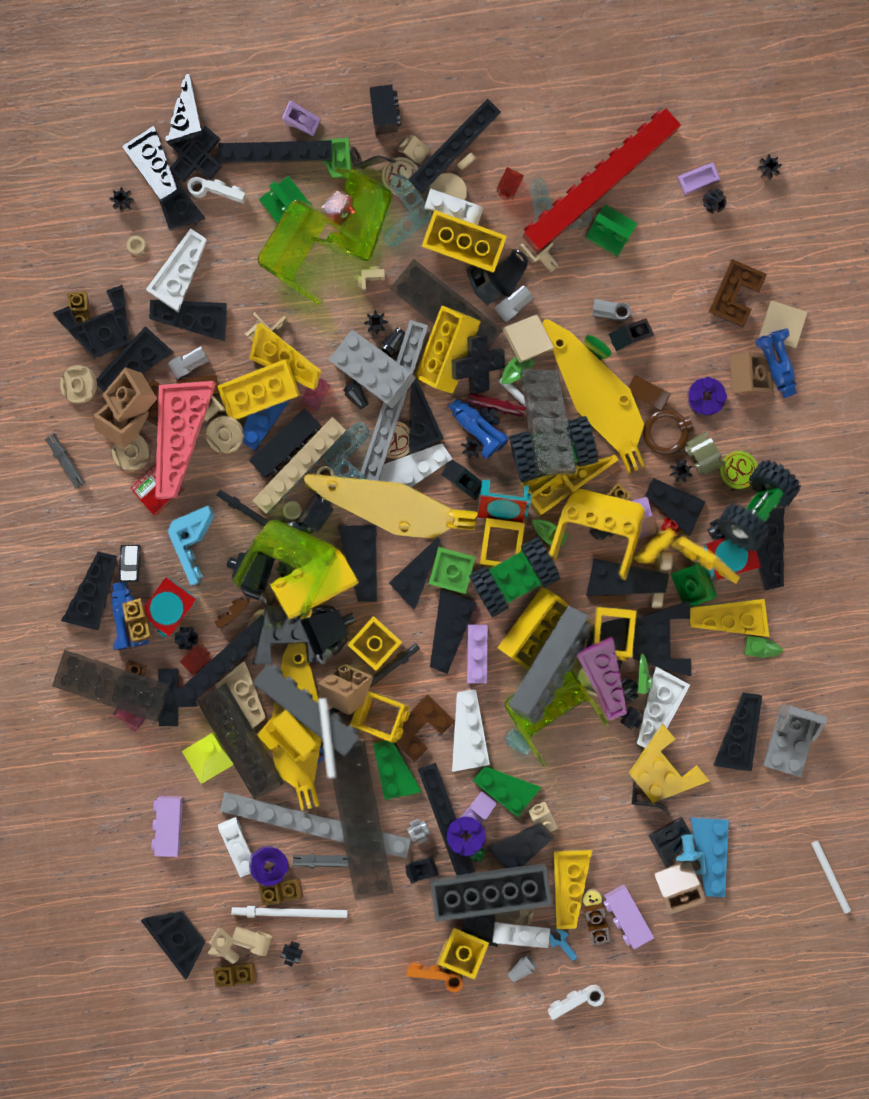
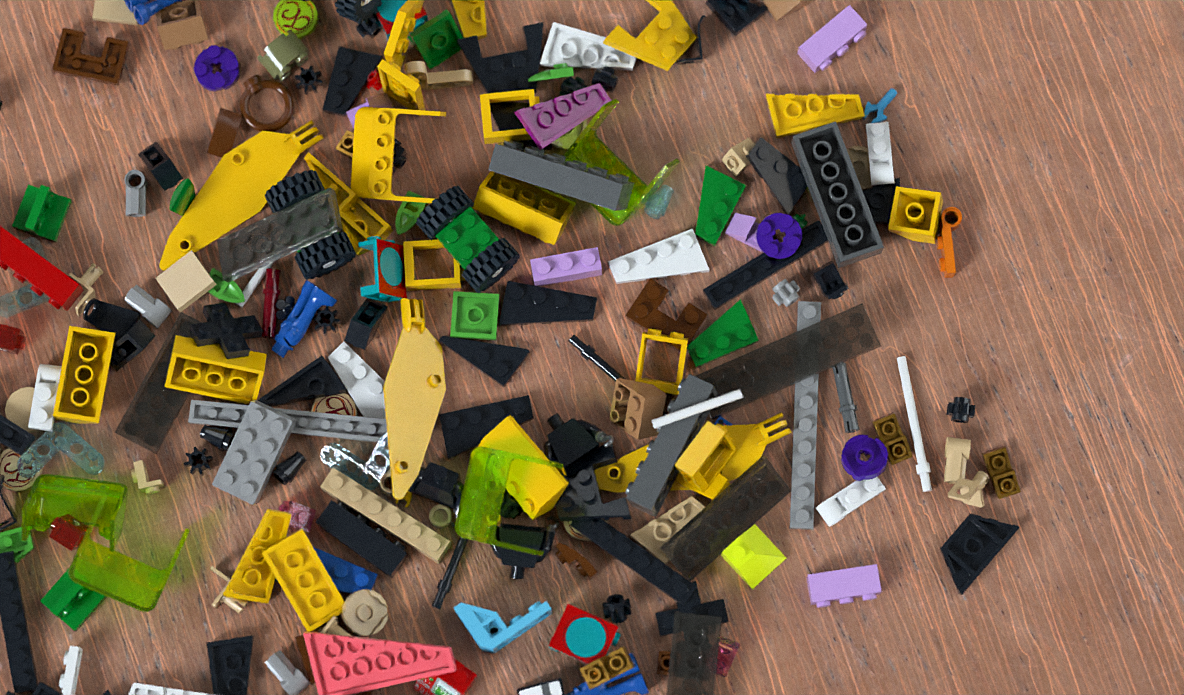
camera: 95 degrees left, 10 degrees down
(196, 659) = (639, 592): clear red brick -> none
(374, 643) = (577, 385): yellow brick -> none
(522, 968) = (919, 146): light grey cone -> none
(574, 999) = (940, 80): white plate -> none
(591, 897) = (821, 84): light yellow tile -> none
(597, 924) = (849, 73): reddish brown slope -> none
(606, 580) = (447, 134): black wing -> none

